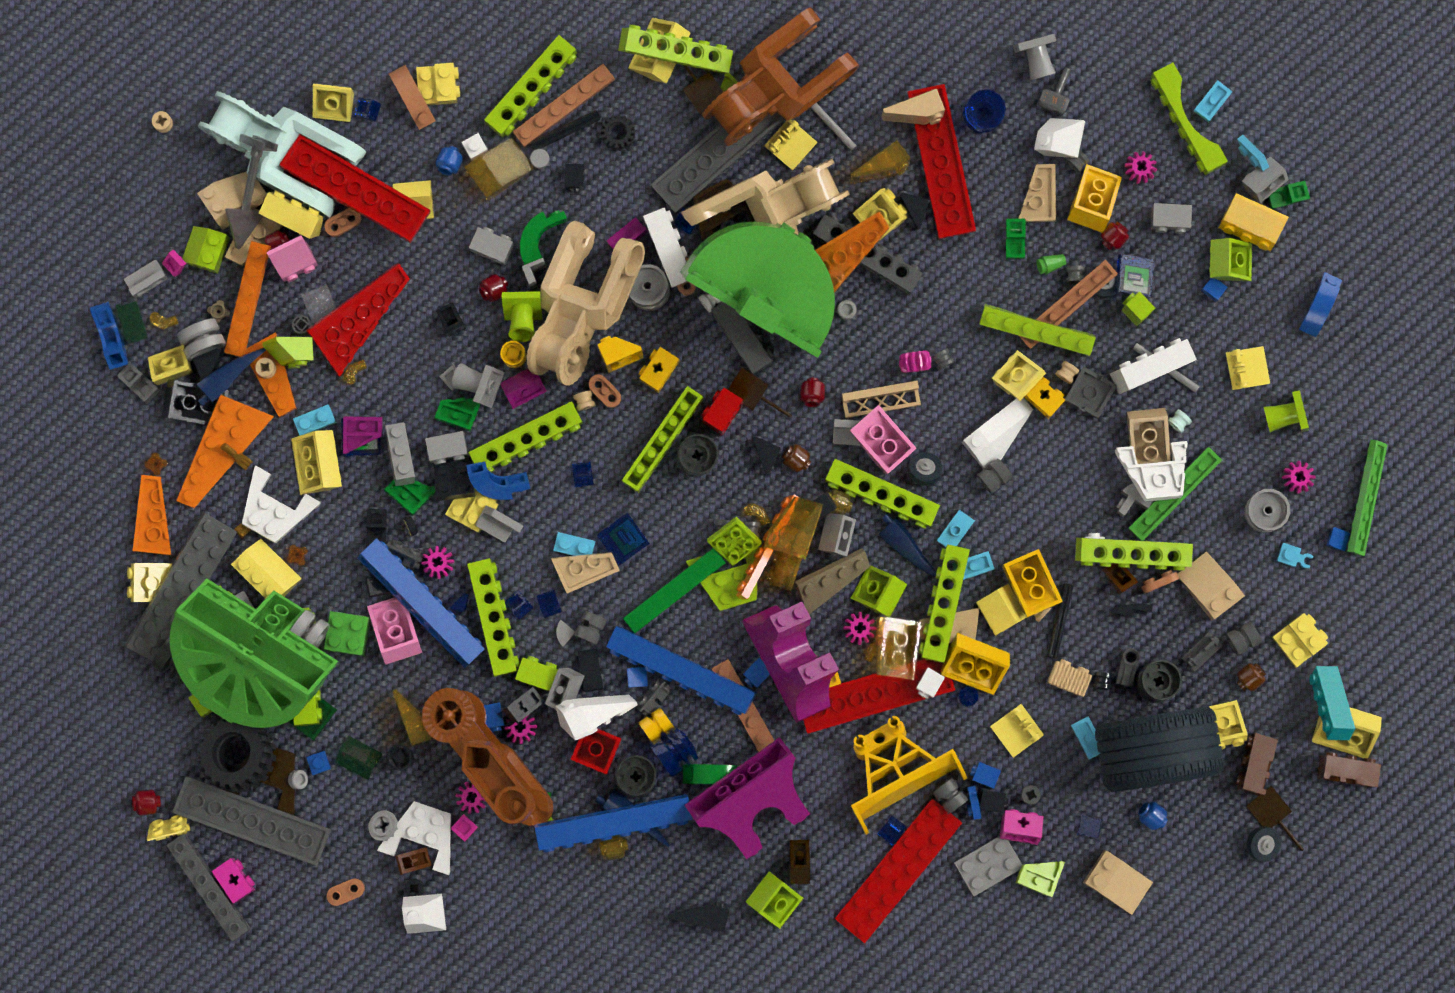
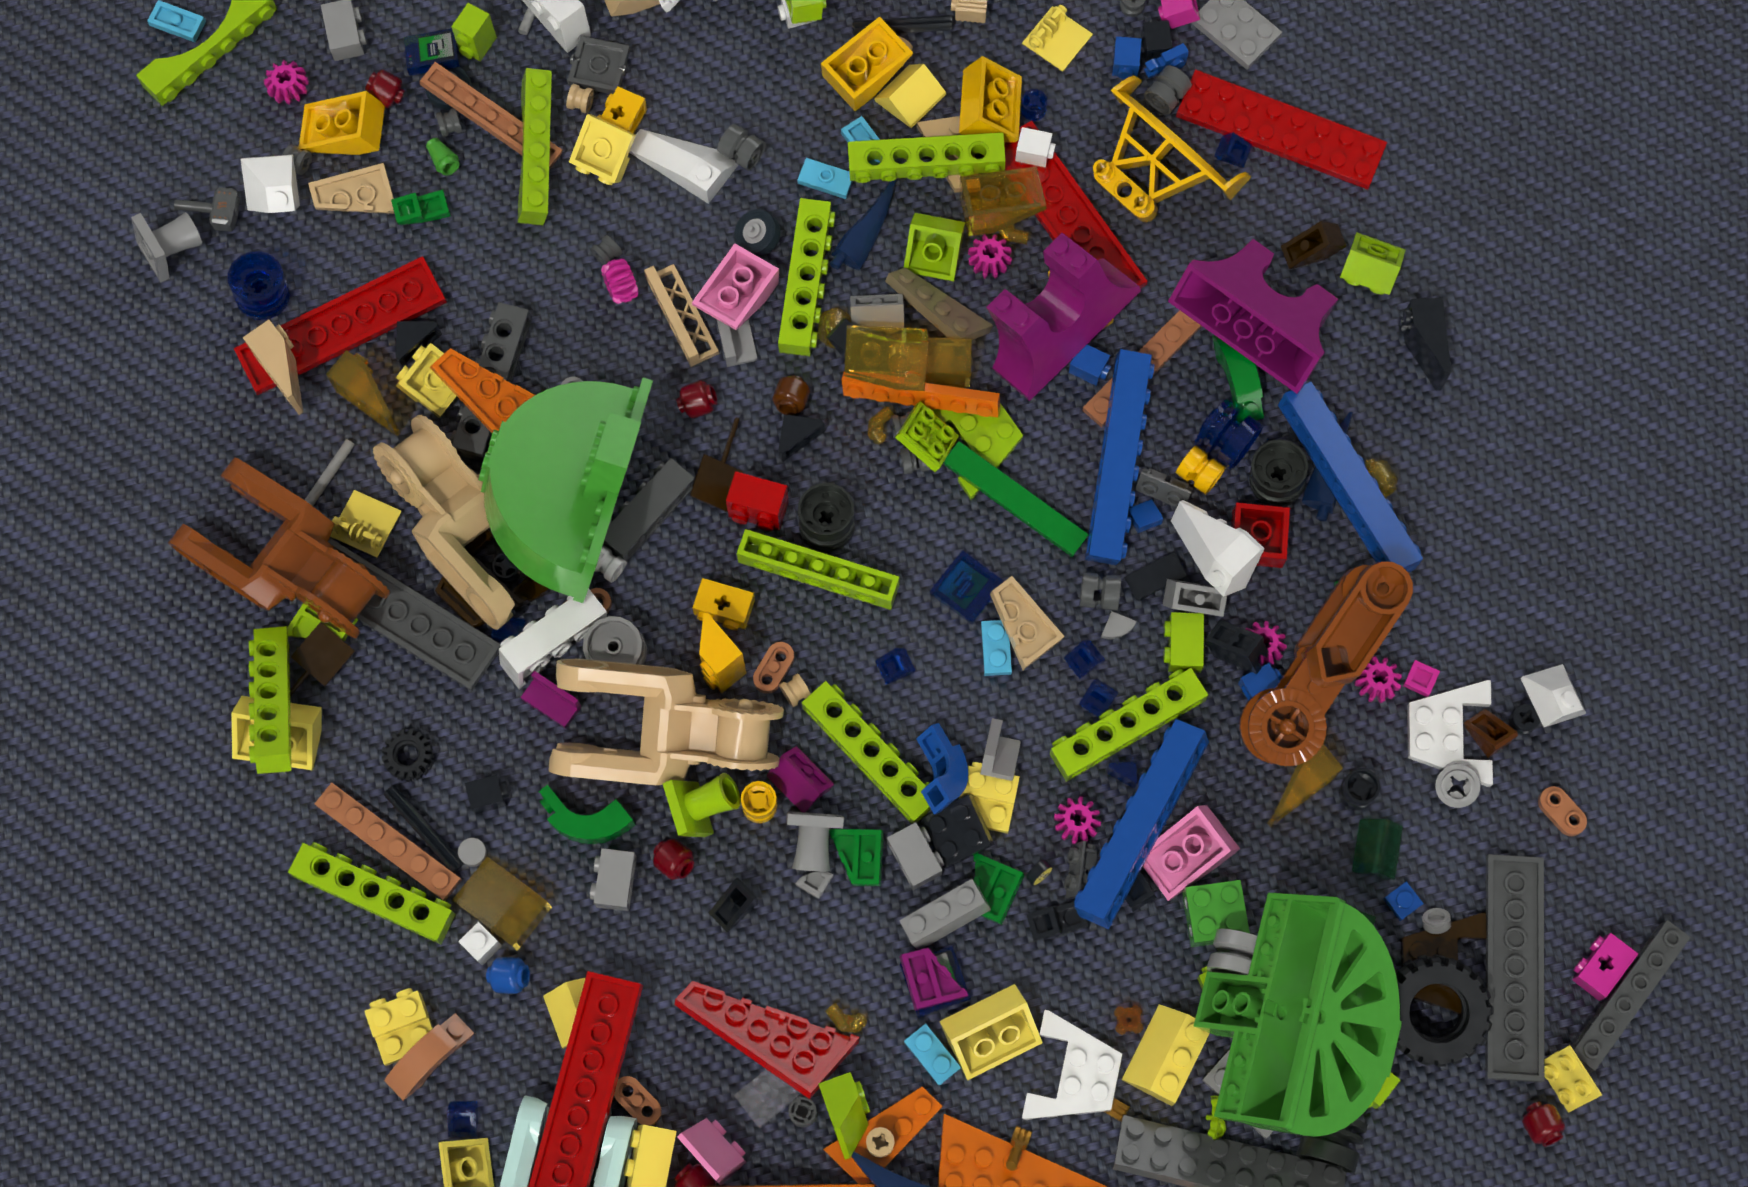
camera: 105 degrees left, 10 degrees down
(532, 267) = (642, 810): light grey panel -> none

